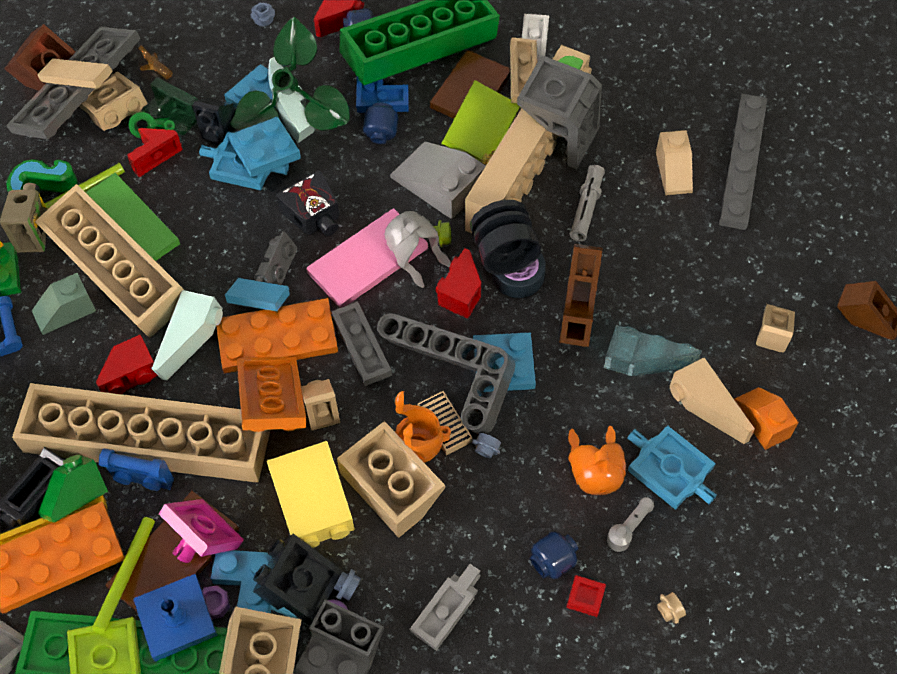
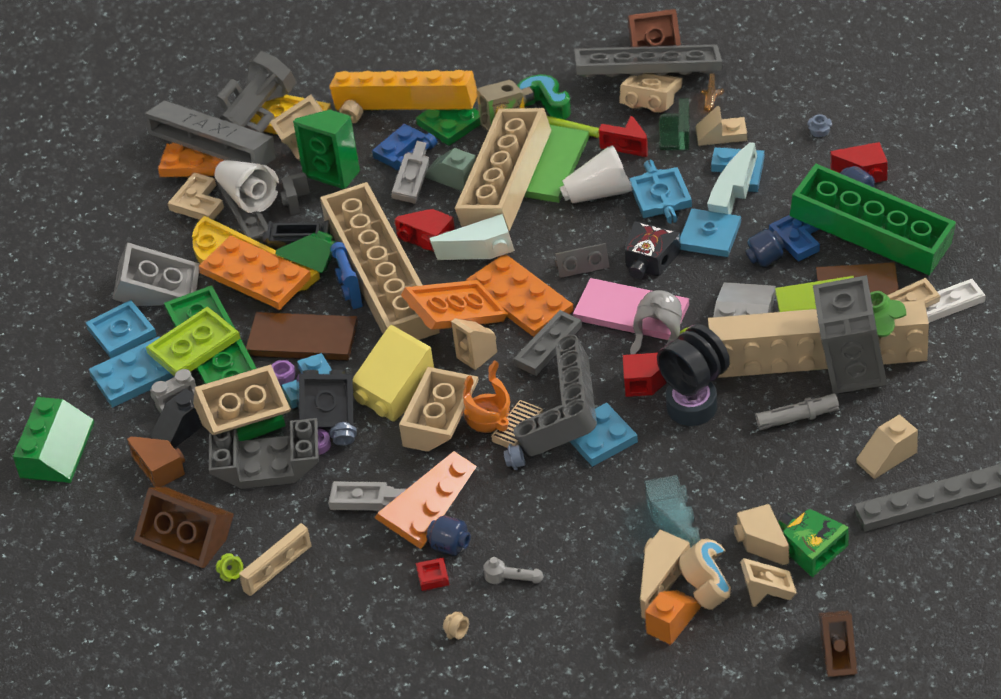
camera: 65 degrees right, 15 degrees down
(39, 341) = (411, 174): none -> light grey hinge
(75, 73) = (647, 52): tan tile -> none
(123, 575) = (265, 312): lime bar -> none
(162, 123) = (650, 127): green plate -> none
(175, 617) = (254, 350): blue tile -> none
(191, 193) = (597, 178): none -> white cone
(200, 529) = (323, 326): dark pink tile -> none
(204, 78) = (717, 130): none -> tan slope
(214, 118) = (681, 150): black slope -> none
(257, 294) = (542, 263): dark azure tile -> none
(264, 146) = (677, 192): dark azure plate -> none
(292, 47) = (741, 202): dark green plant -> none
(324, 152) = (710, 232): none -> dark azure plate
(502, 560) = (426, 499): none -> wing
(581, 295) = (689, 451): reddish brown arch -> none
(597, 469) = (540, 526): orange hair -> none
(671, 467) = (579, 573): dark azure plate -> none
(717, 299) = (762, 534): none -> tan slope
(742, 365) = (702, 572): none -> tan animal
(745, 269) = (813, 539): none -> green torso

